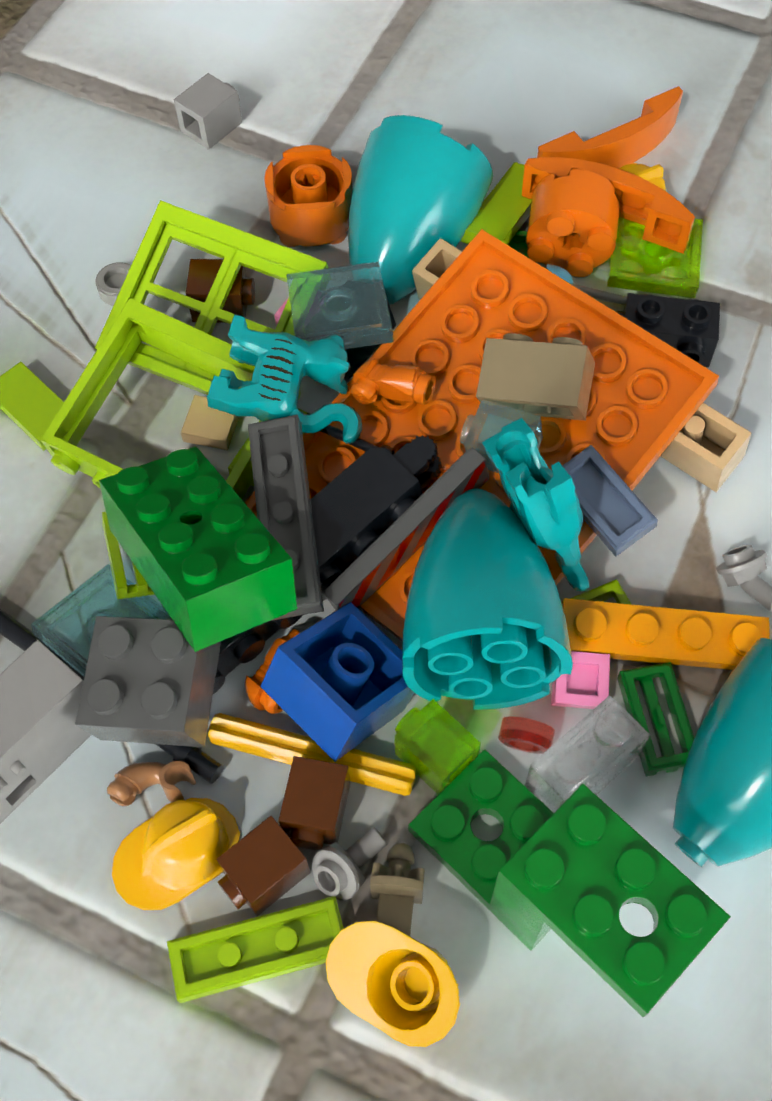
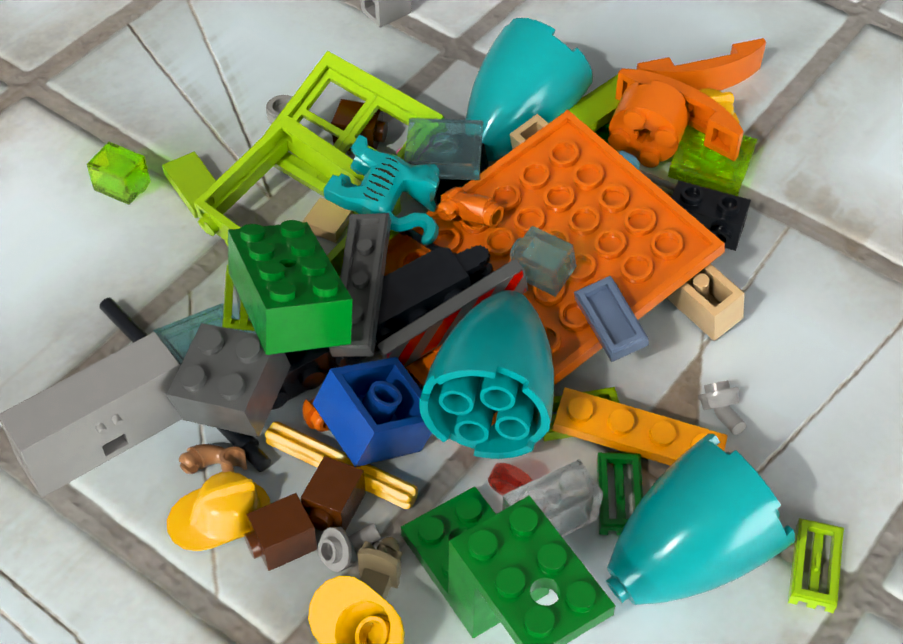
camera: 10 degrees right, 10 degrees down
(253, 949) = (256, 590): lime tile -> none
(309, 196) = (445, 70): orange brick -> none
(435, 745) = (436, 473): clear neon green brick -> none
(537, 375) = (580, 217): dark tan brick -> none
(540, 497) = (555, 299): teal animal -> none
(586, 684) = (562, 448): bright pink plate -> none

